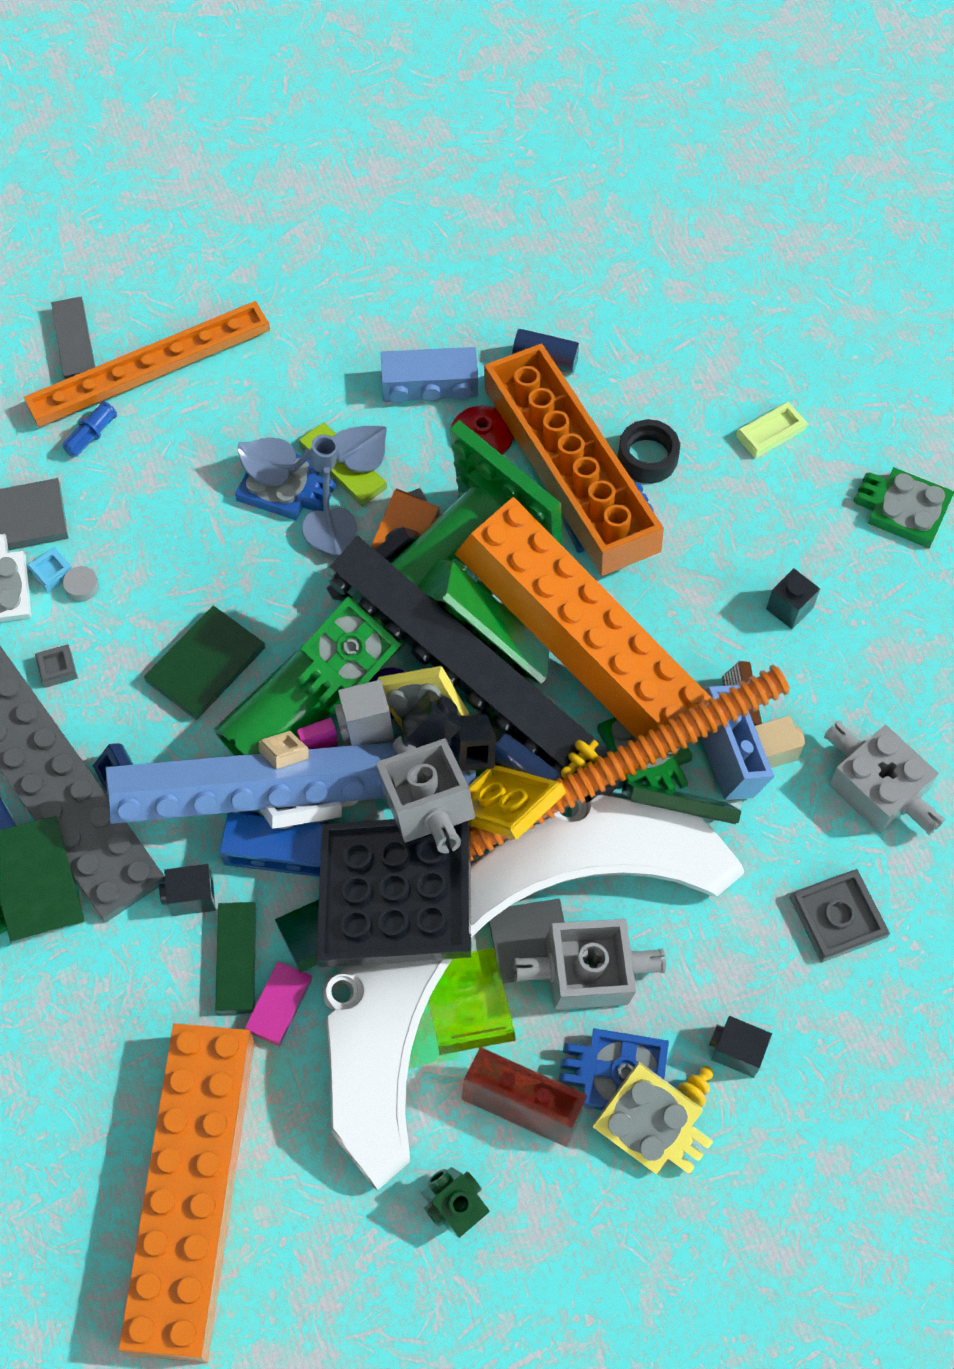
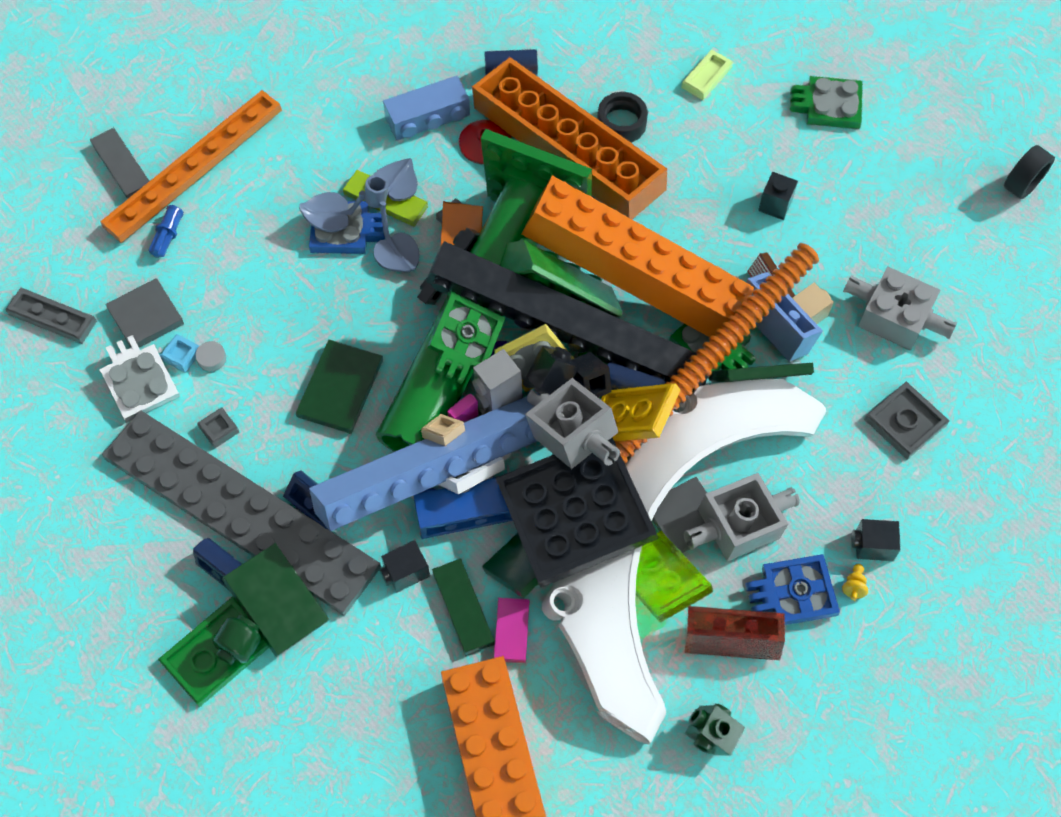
camera: 20 degrees left, 0 degrees up
(586, 752) = (677, 356): yellow hair -> none
(652, 1121) = (836, 617): piece -> none

